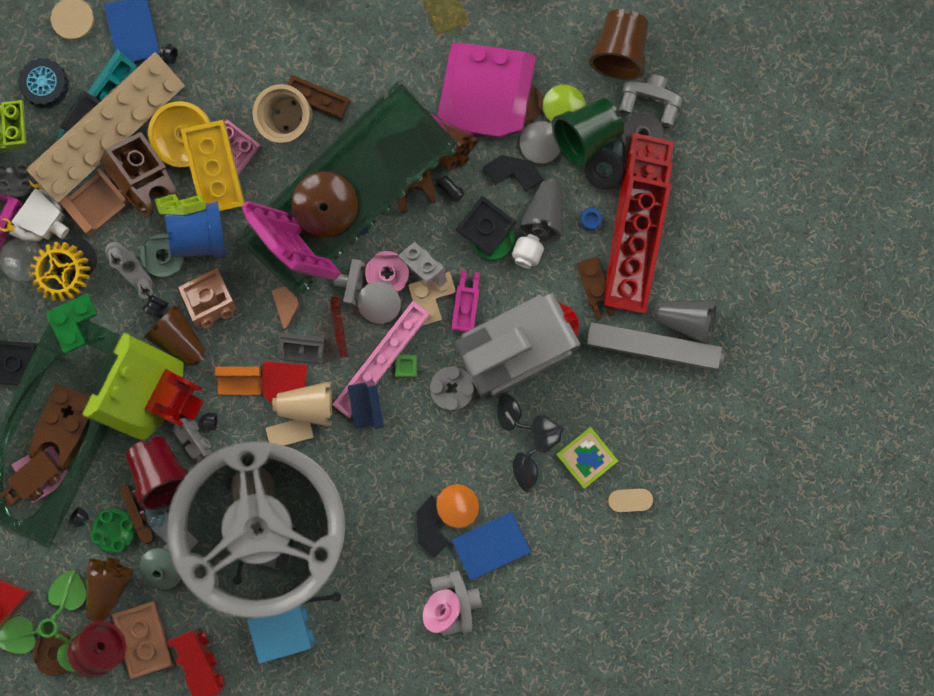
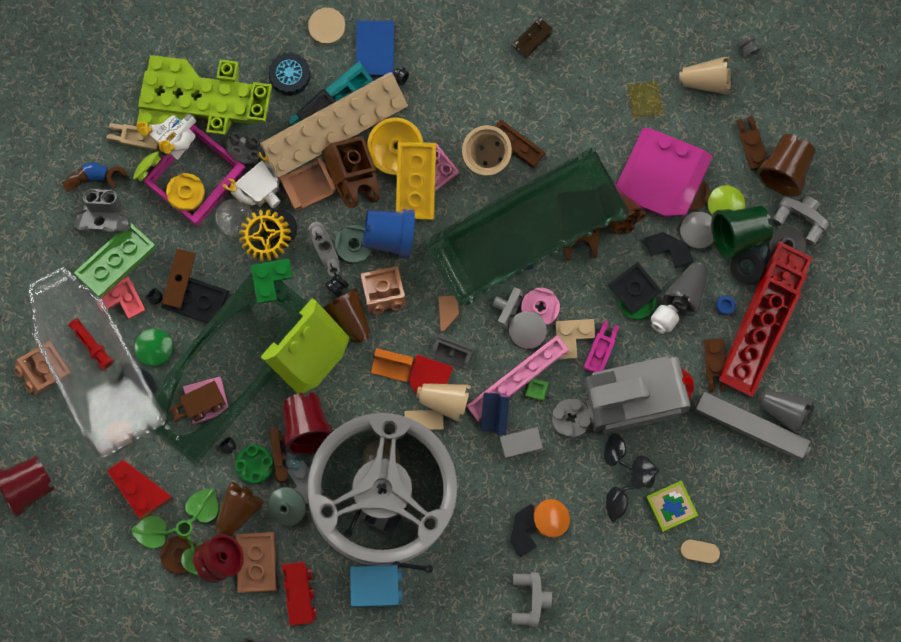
camera: 10 degrees right, 5 degrees down
(62, 431) = (233, 369): reddish brown brick -> none
(172, 205) = (374, 203): lime tile -> none
(174, 398) = (334, 366): red panel -> none
(199, 445) = (338, 396): light grey hinge -> none
(207, 421) = (358, 393): black hinge -> none
(282, 236) = (462, 249): dark pink wedge -> none
(329, 189) = (508, 222): reddish brown dish -> none
(339, 326) = (489, 341): clear red tile -> none
(402, 430) = (520, 442): none -> light grey hinge
(423, 264) = (574, 307): light grey bracket -> none
(441, 611) = (516, 602): bright pink dish -> none
(450, 189) = (612, 250): black pin -> none
(491, 546) = (571, 559): blue tile -> none
(576, 31) = (752, 144): none -> reddish brown hinge

